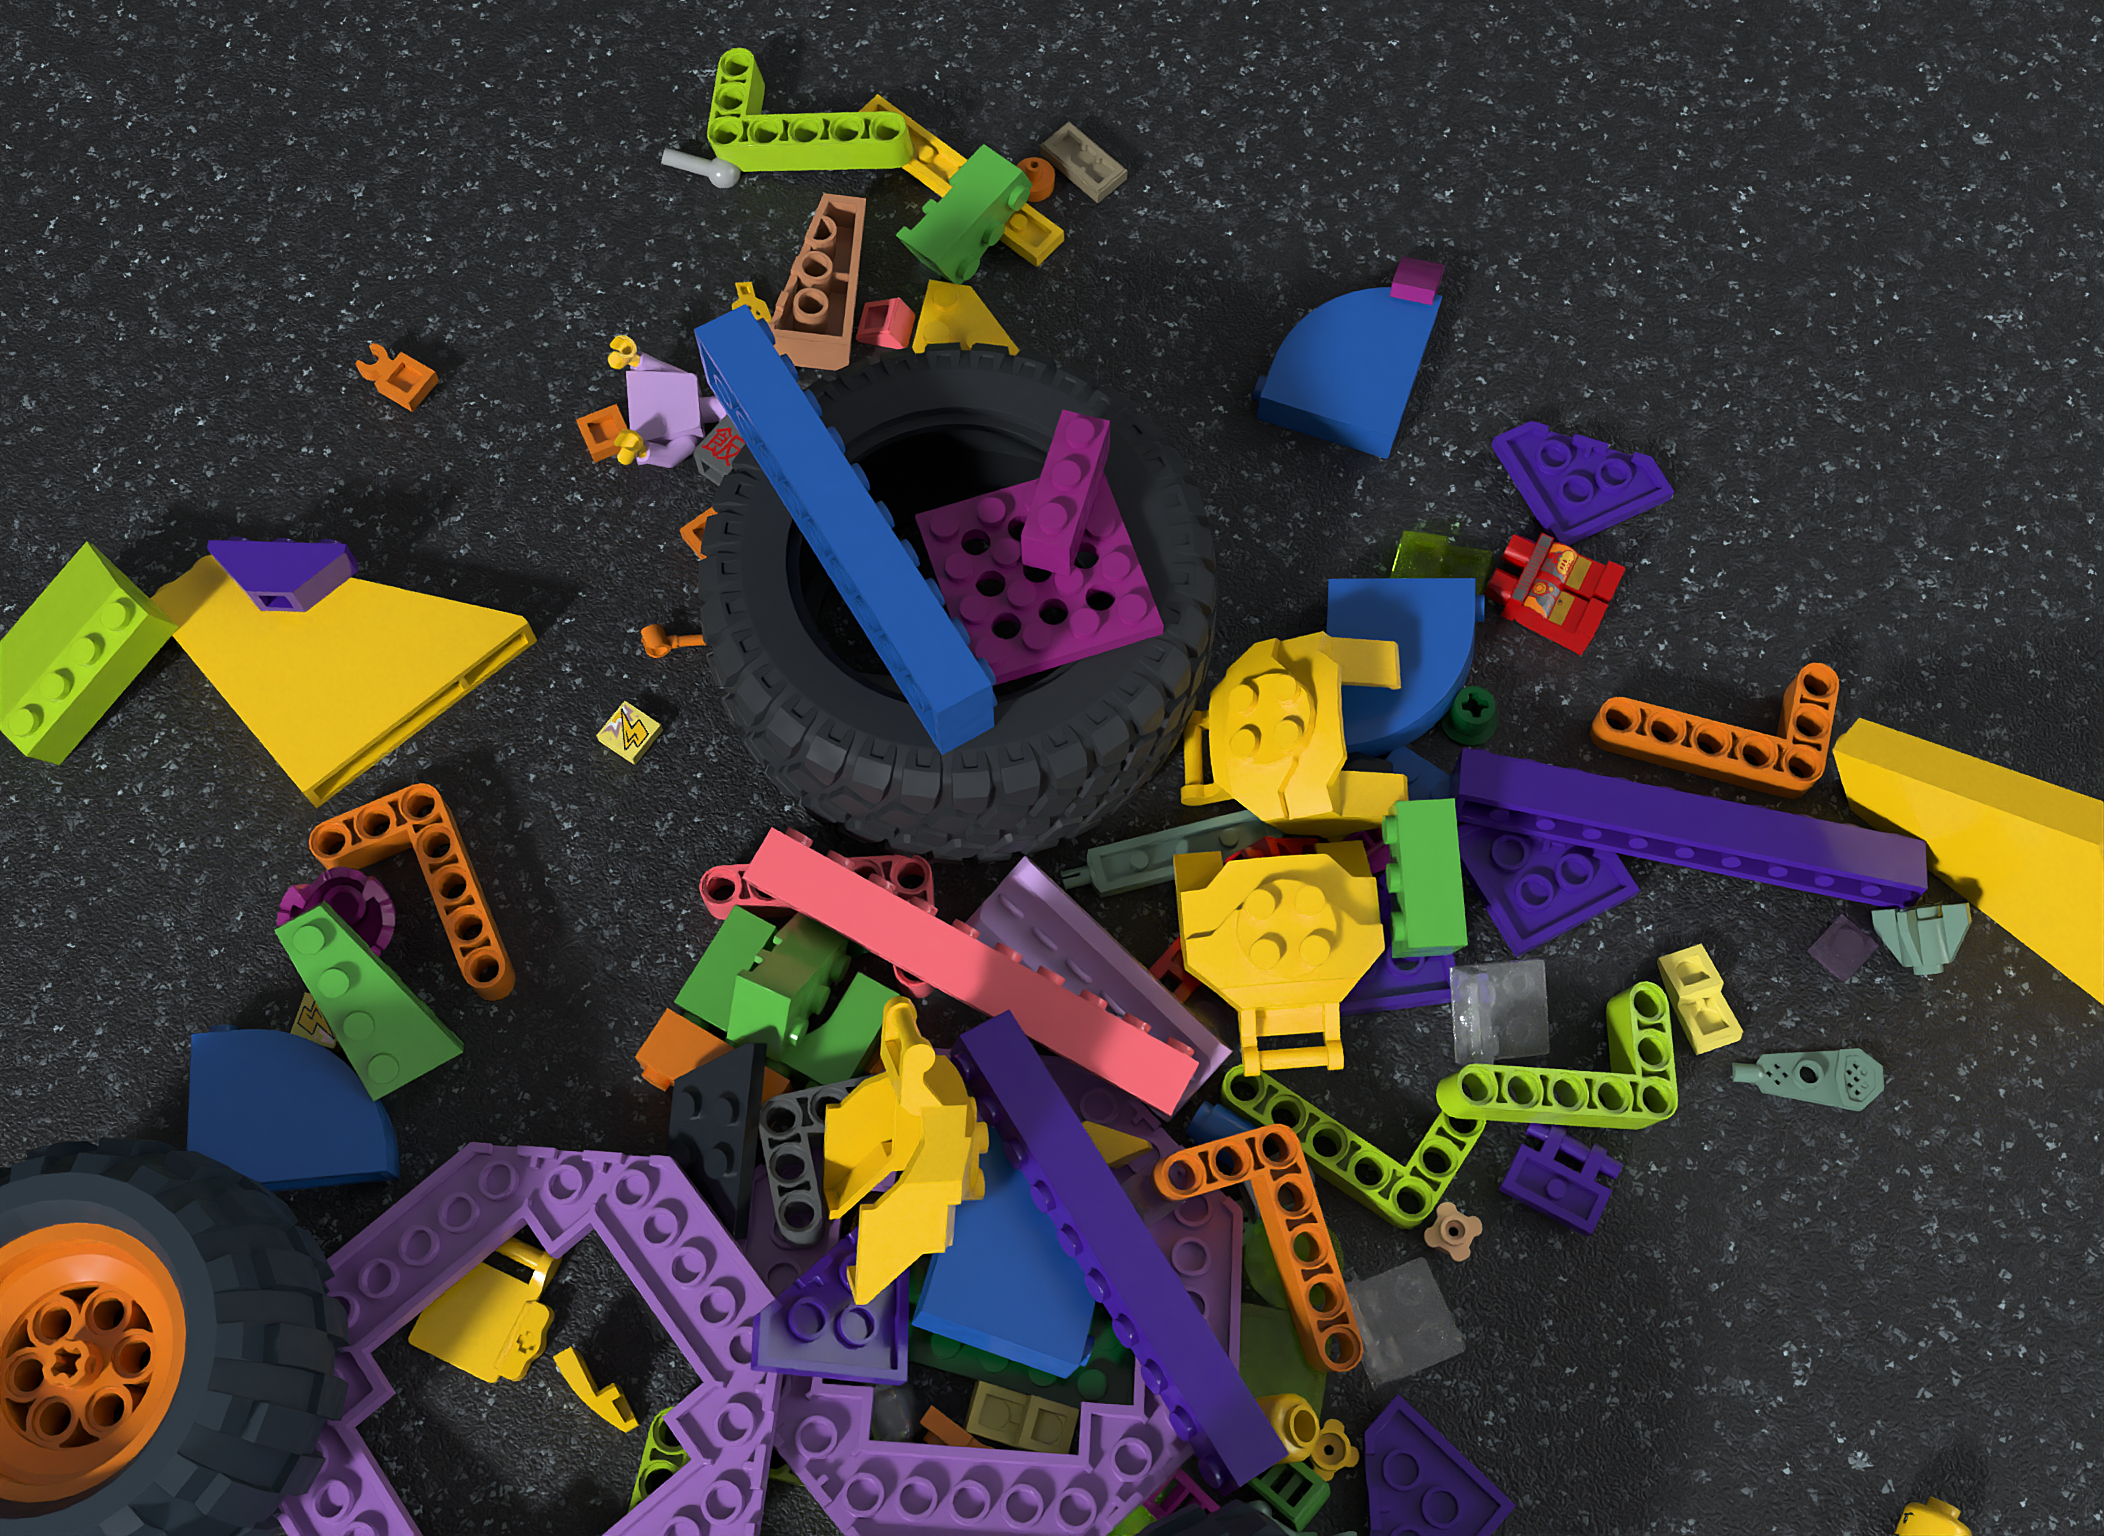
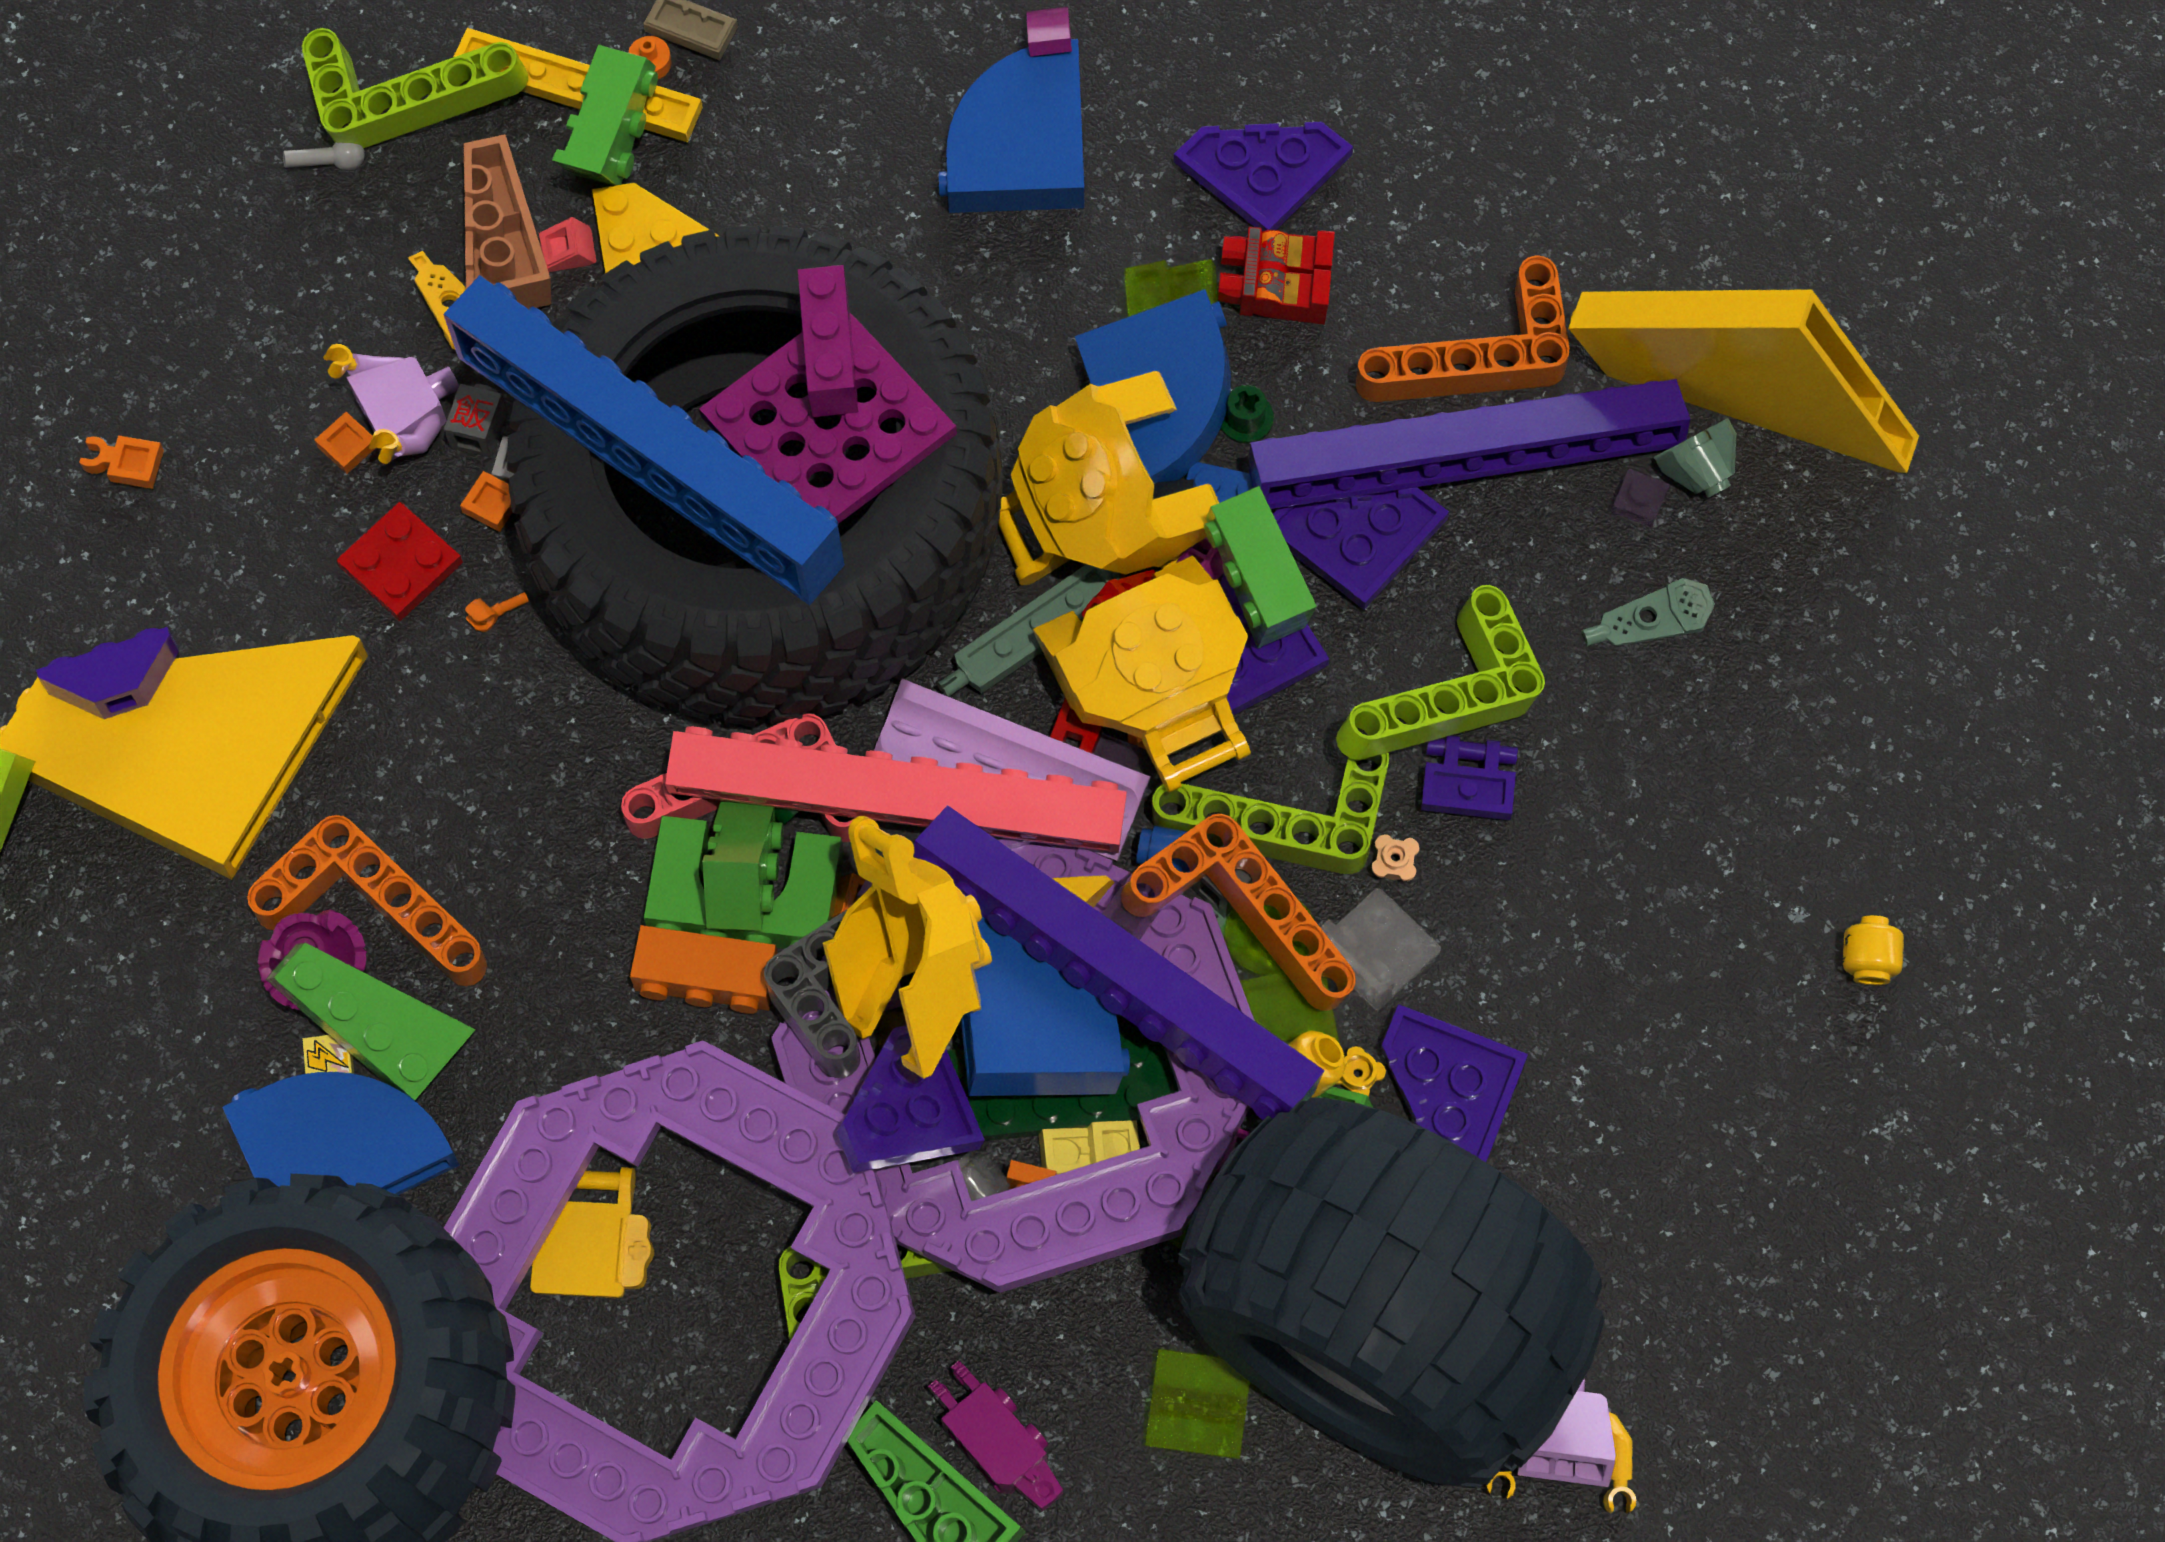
camera: 20 degrees left, 0 degrees up
(604, 562) = (399, 561): none -> red plate
(608, 1402) = (728, 1271): yellow slope -> none
(629, 732) = (493, 705): tile -> none
(717, 1131) = (732, 1001): black wing -> none
(1499, 1011) = (1366, 657): clear bracket -> none
(1697, 999) = (1532, 587): light yellow slope -> none

